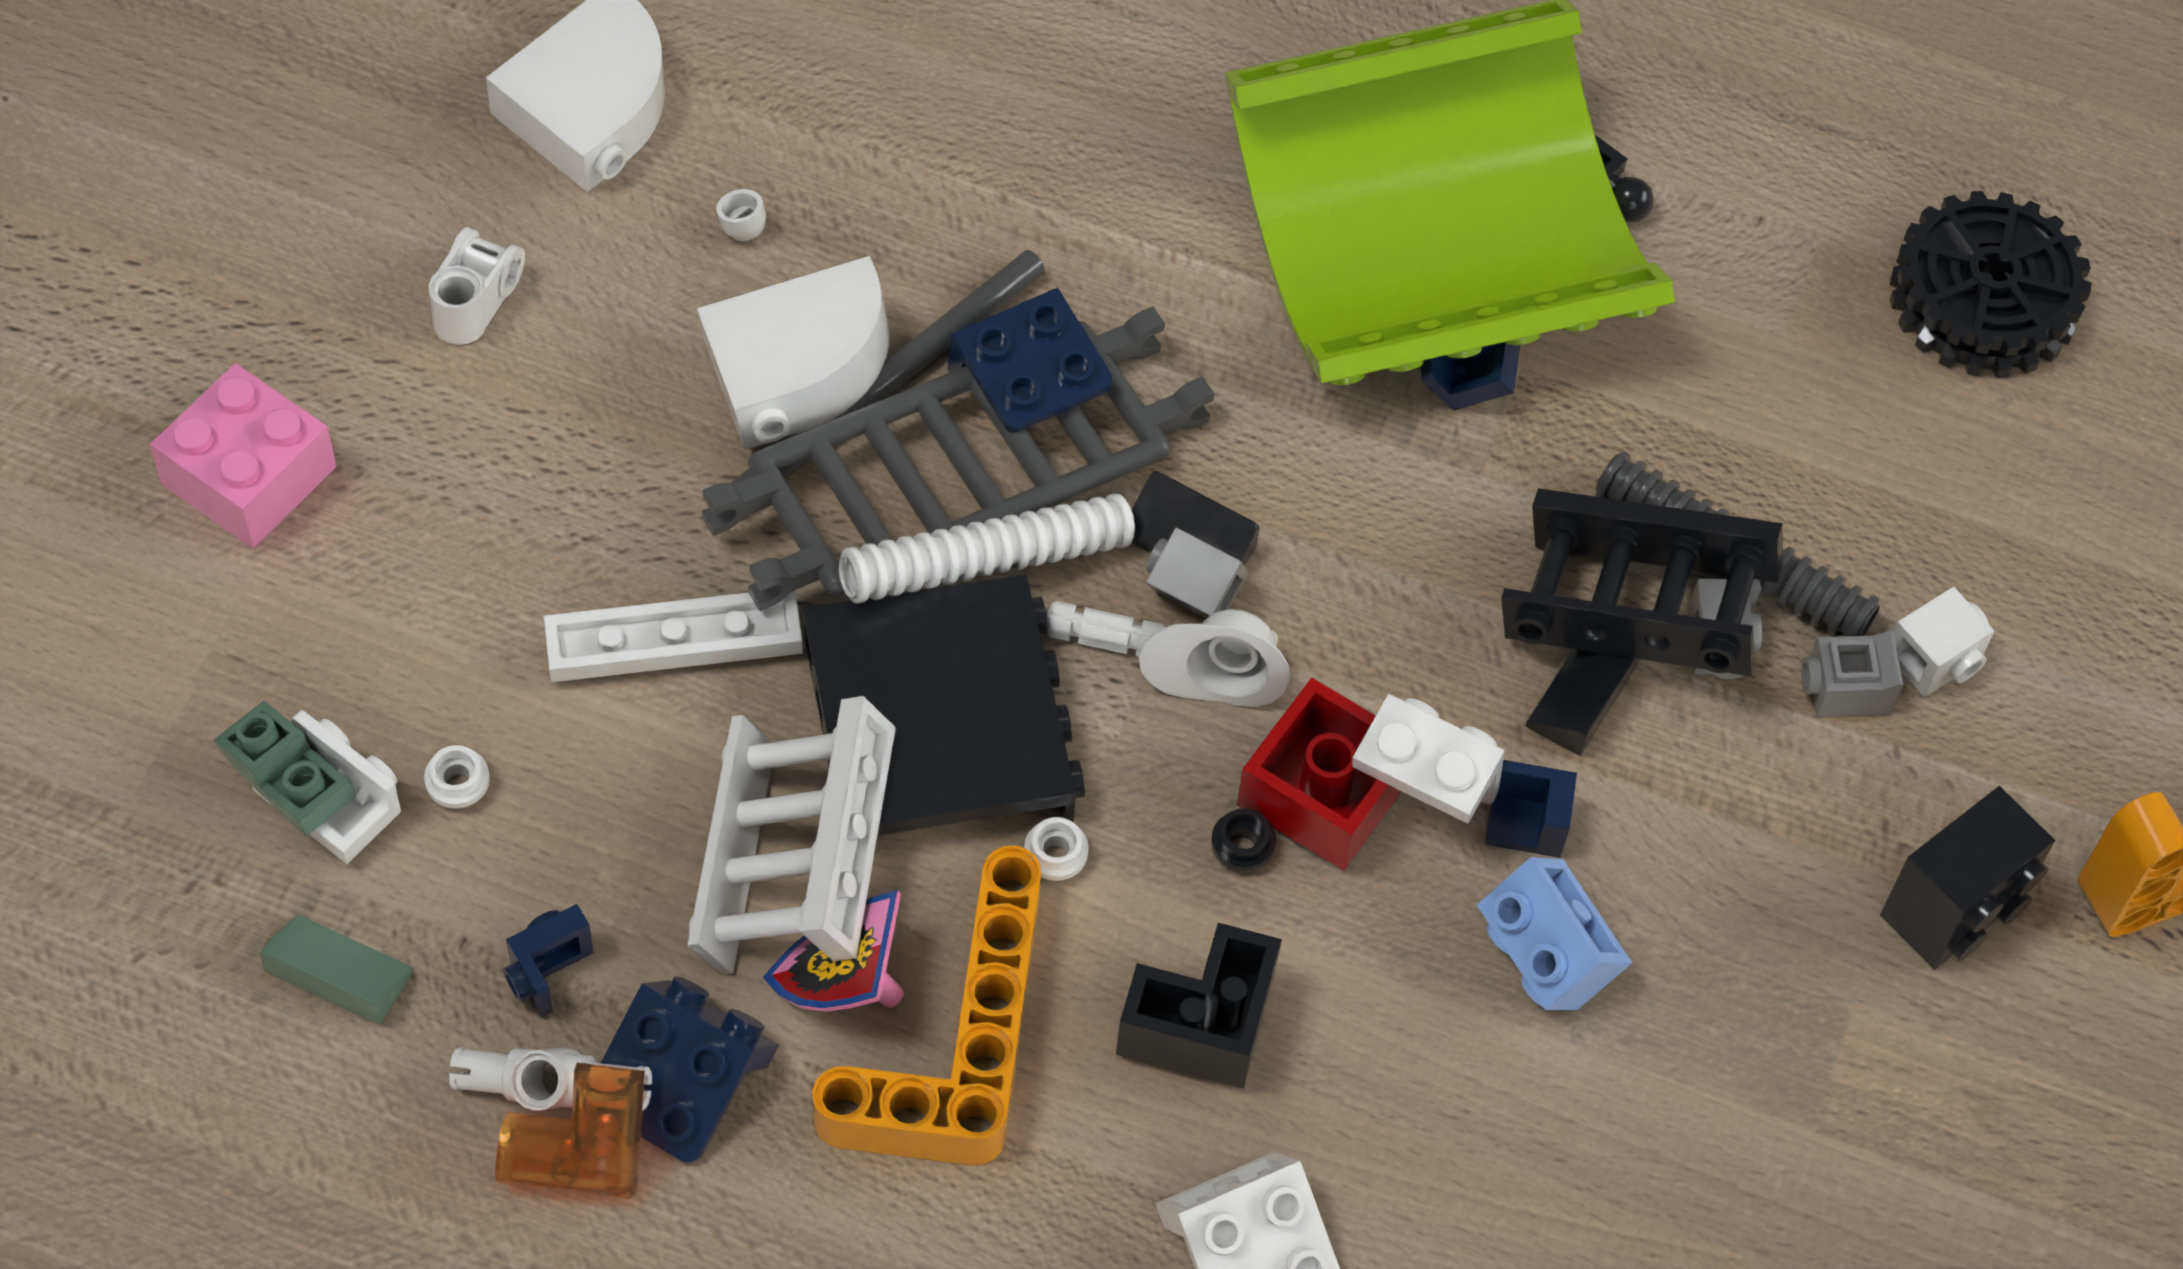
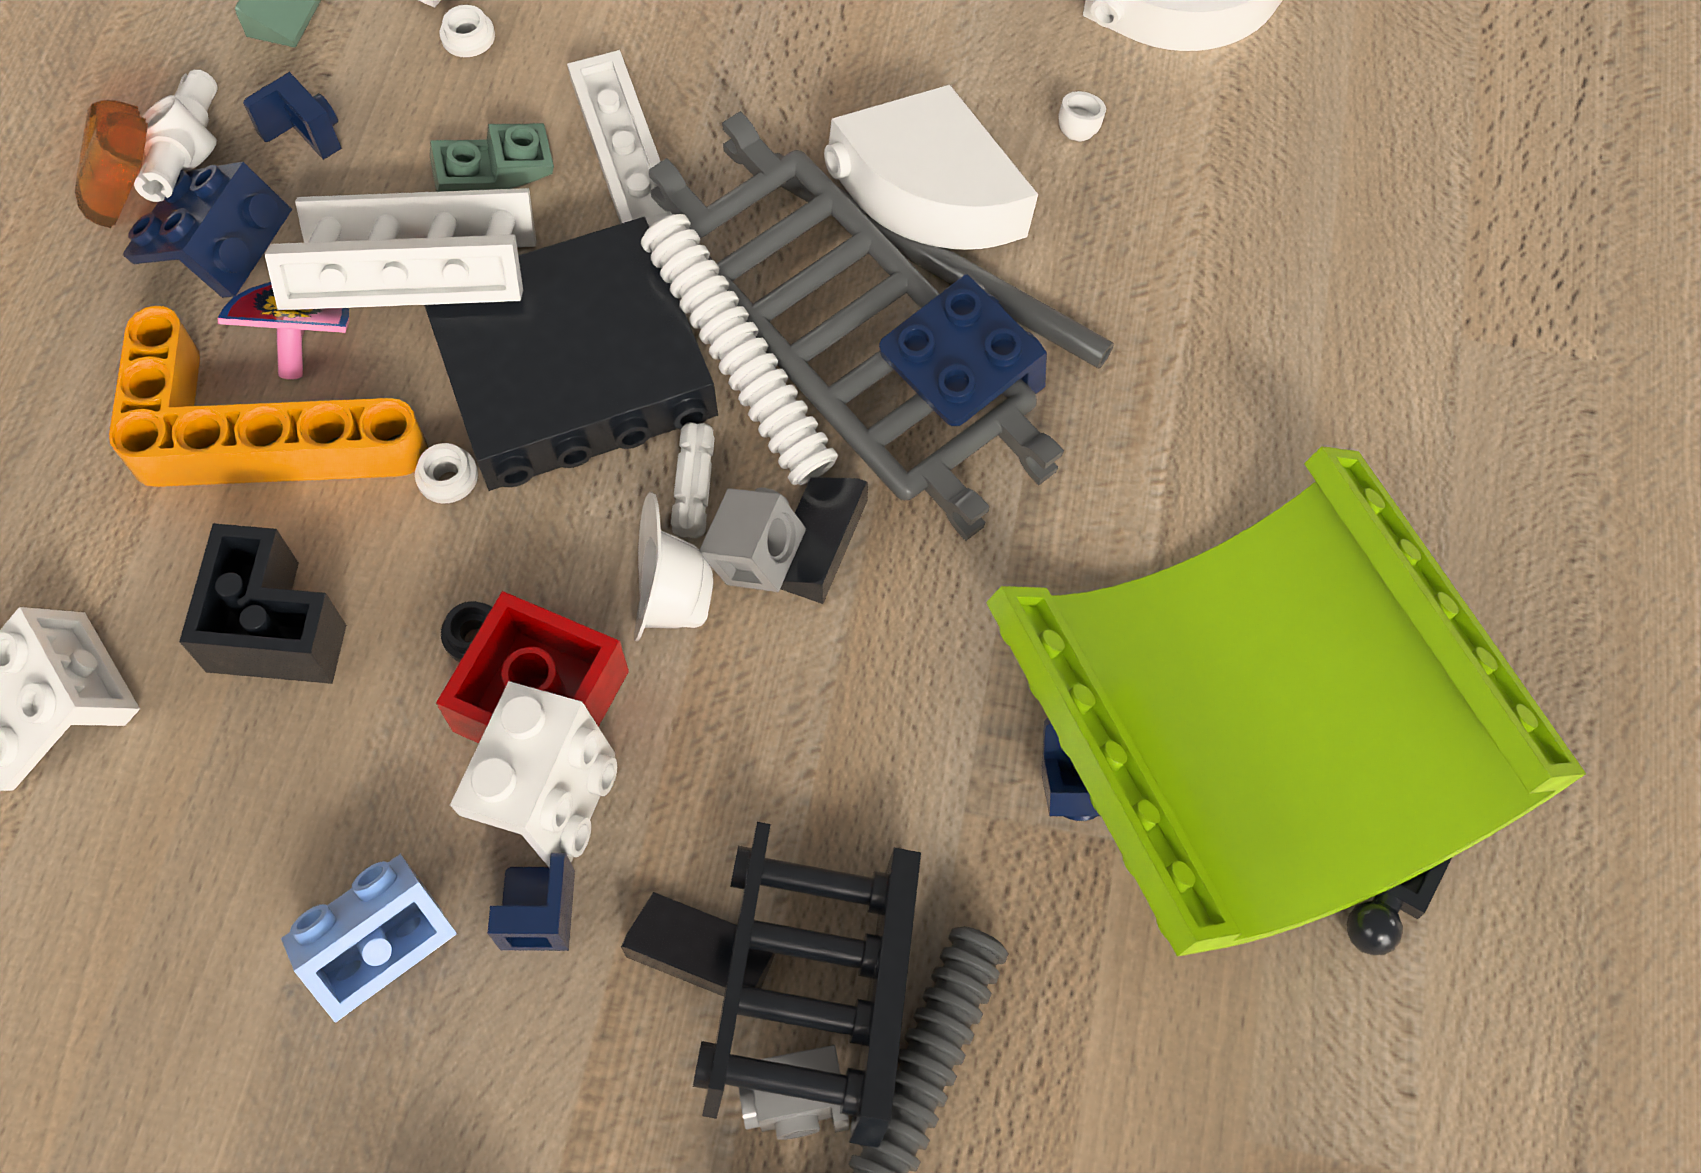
camera: 85 degrees right, 5 degrees up
(652, 772) = (504, 160): none -> sand green slope

